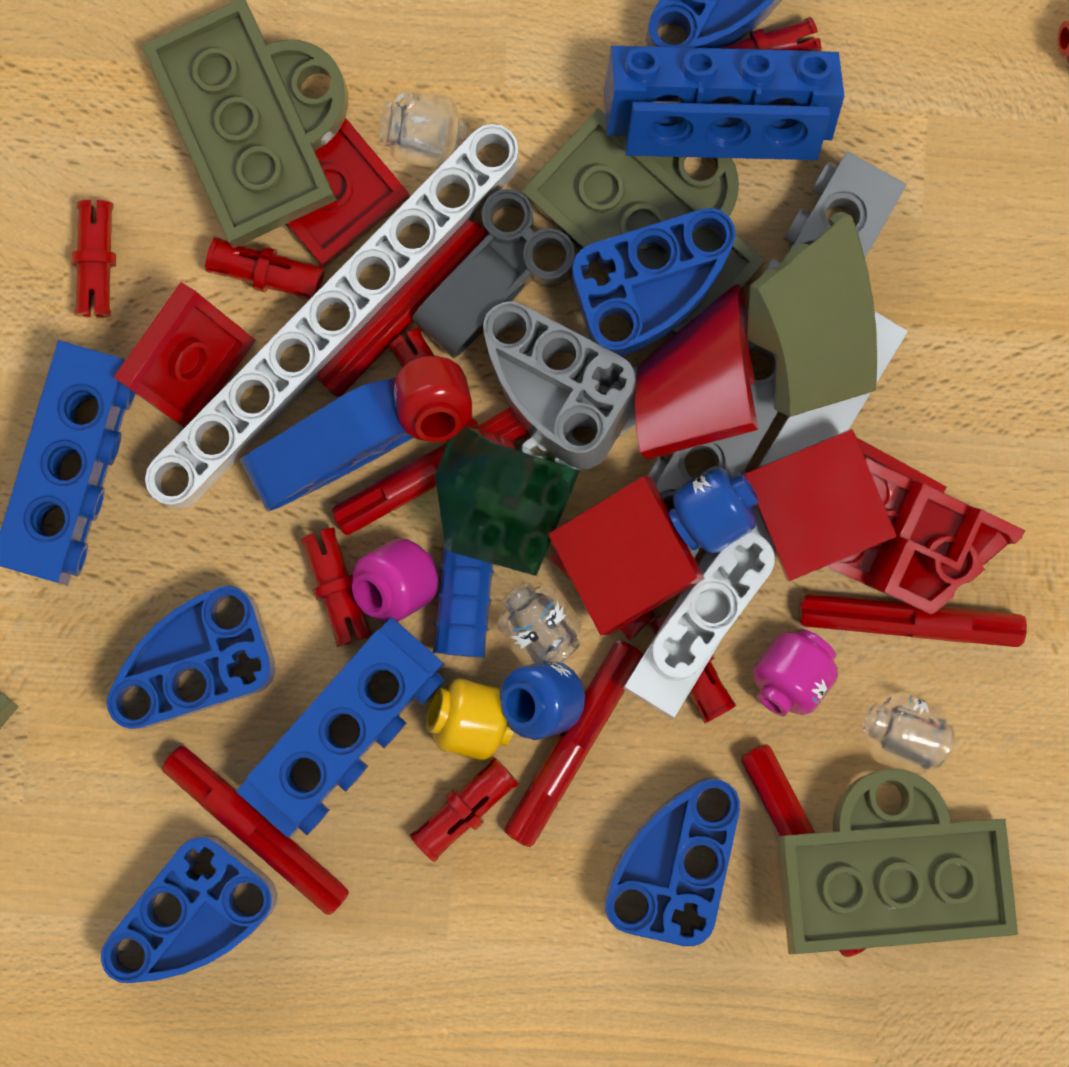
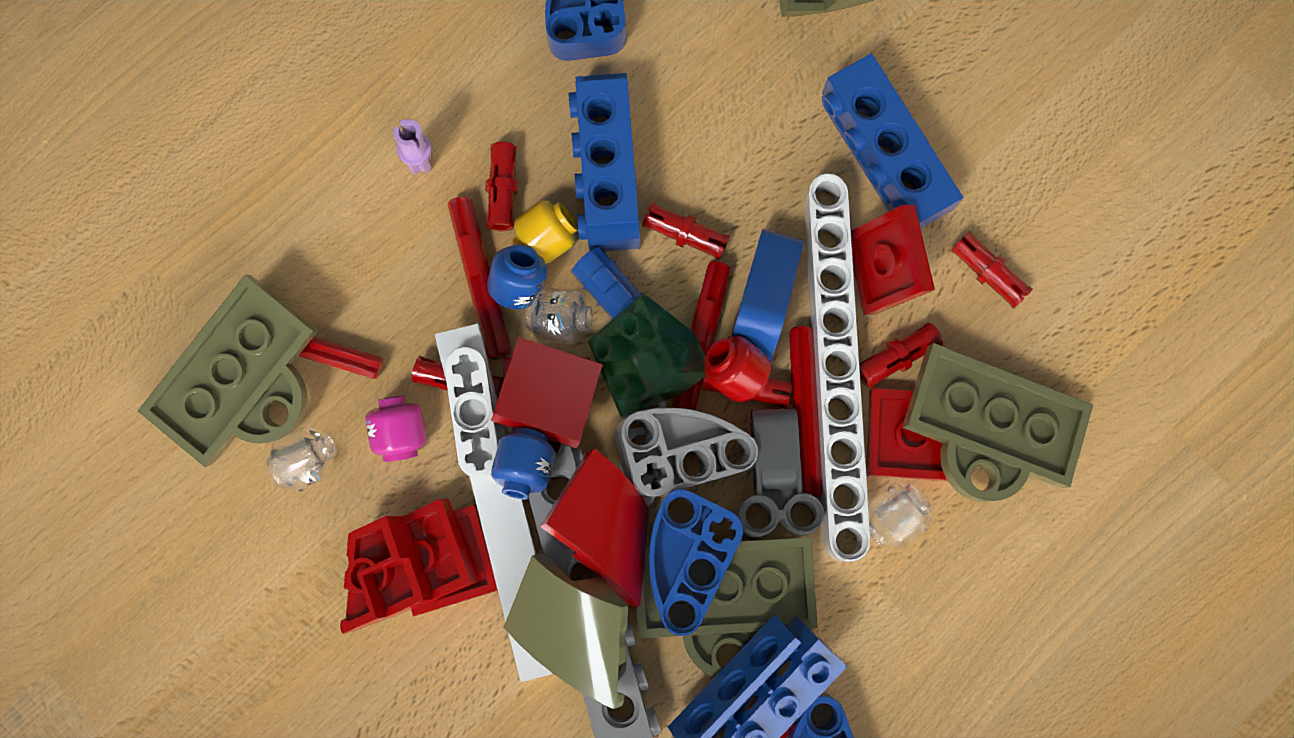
camera: 135 degrees right, 5 degrees down
(187, 641) = (718, 133): blue beam -> none
(254, 830) = (563, 74): red axle -> none
(394, 580) = (658, 261): dark pink head -> none
(513, 924) = (413, 146): none -> lavender axle
(656, 867) = (366, 252): blue beam -> none
(820, 505) = (469, 529): red tile -> none
(905, 620) = (334, 544): red axle -> none

